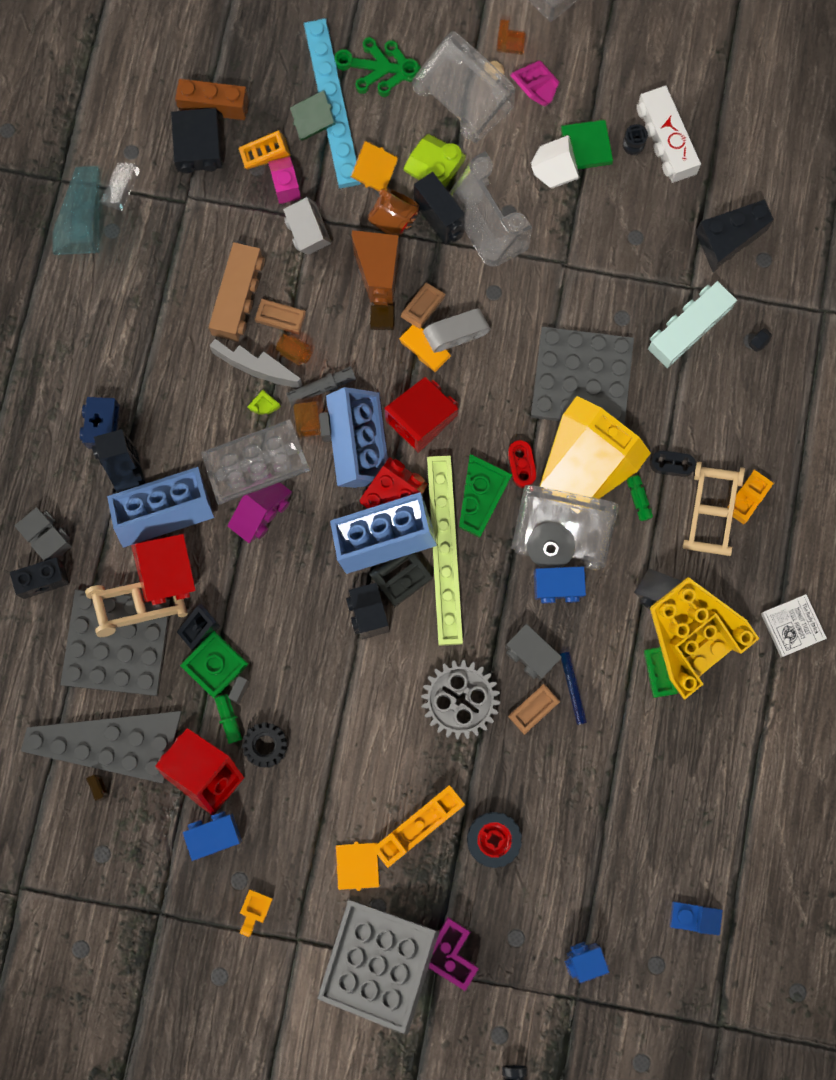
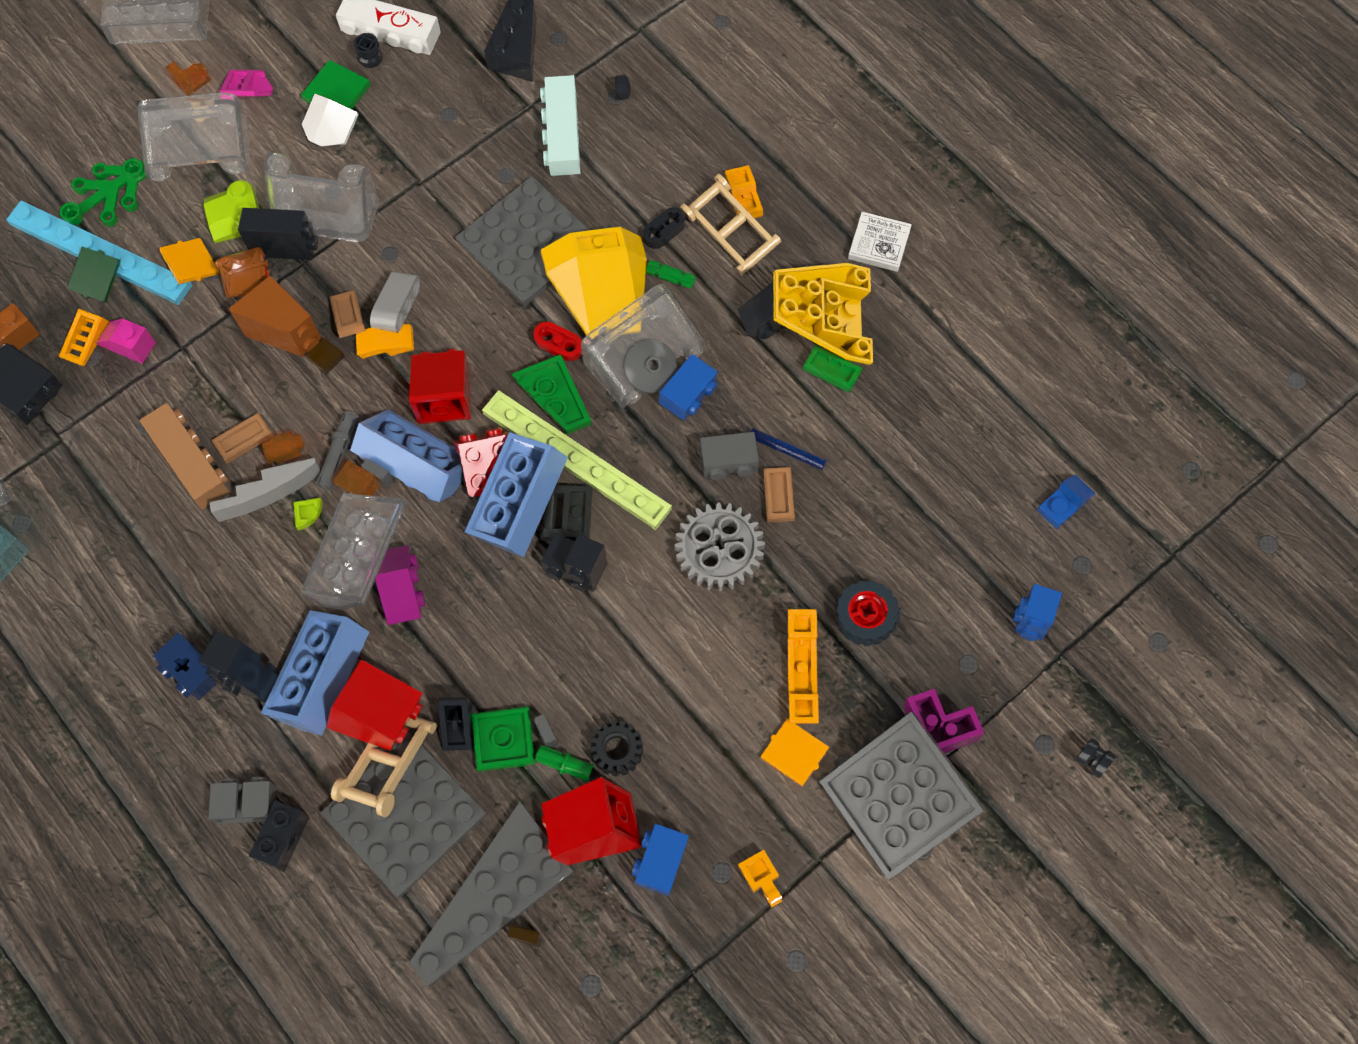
camera: 50 degrees left, 10 degrees down
(306, 226) = (185, 350): light grey brick -> none

